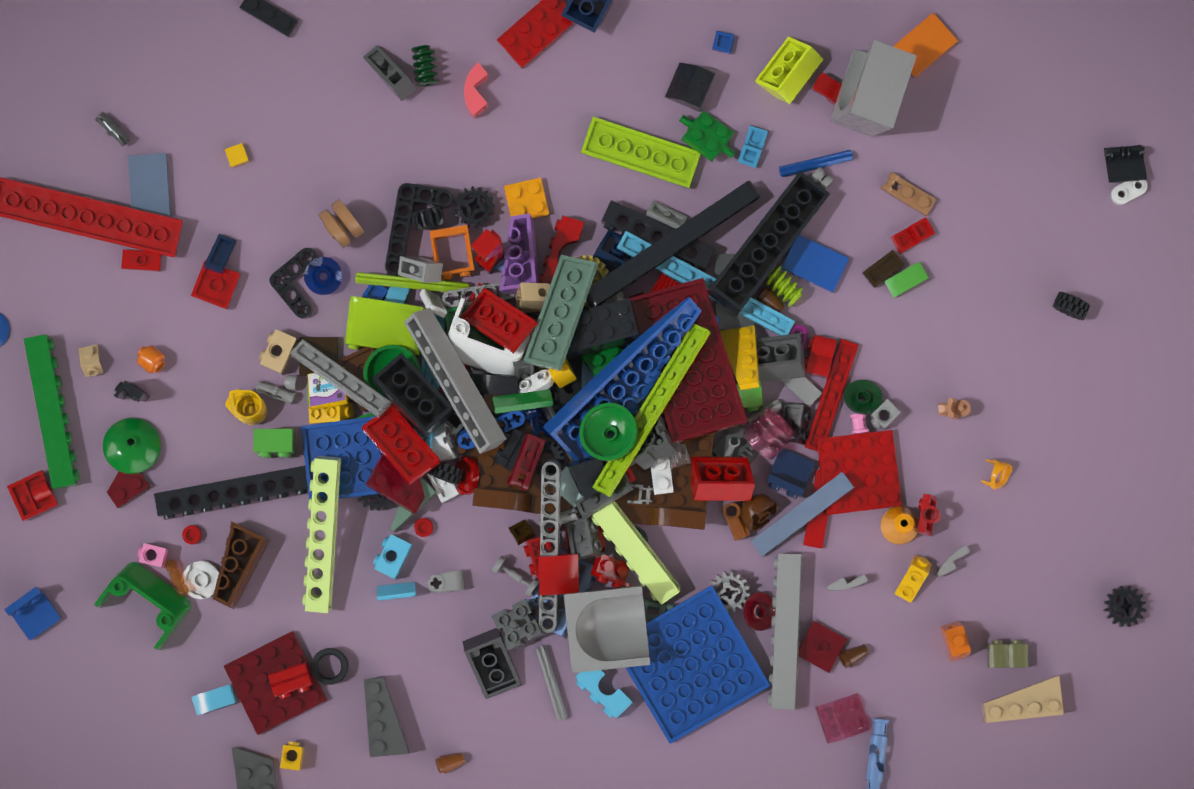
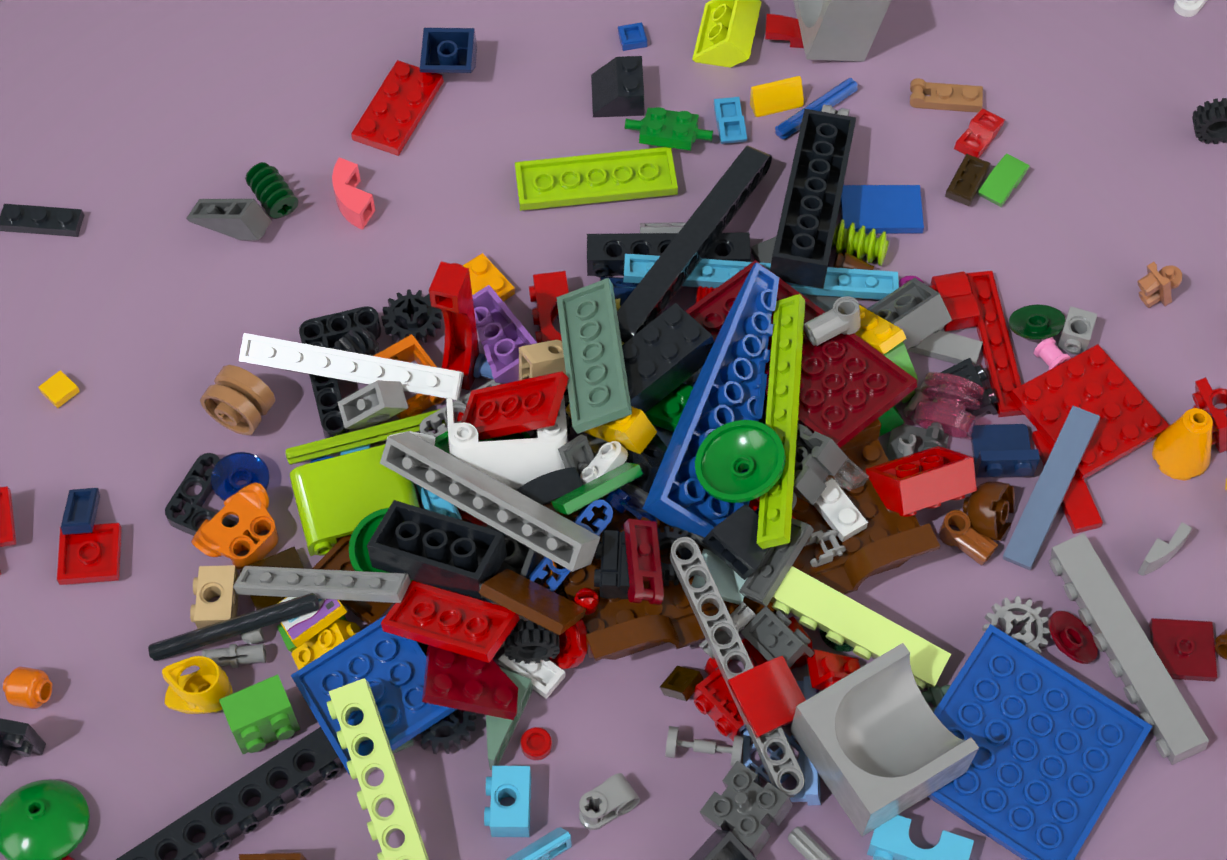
camera: 25 degrees left, 25 degrees down
(280, 378) = (233, 627): none -> black axle
(291, 315) = (251, 508): none -> orange piece
(418, 234) = (350, 366): none -> white tile
(452, 455) = (532, 601): none -> reddish brown tile
(484, 467) = (591, 604): none -> red hinge
(716, 356) = (842, 319): none -> light grey piece
(793, 143) = (777, 96): none -> yellow slope

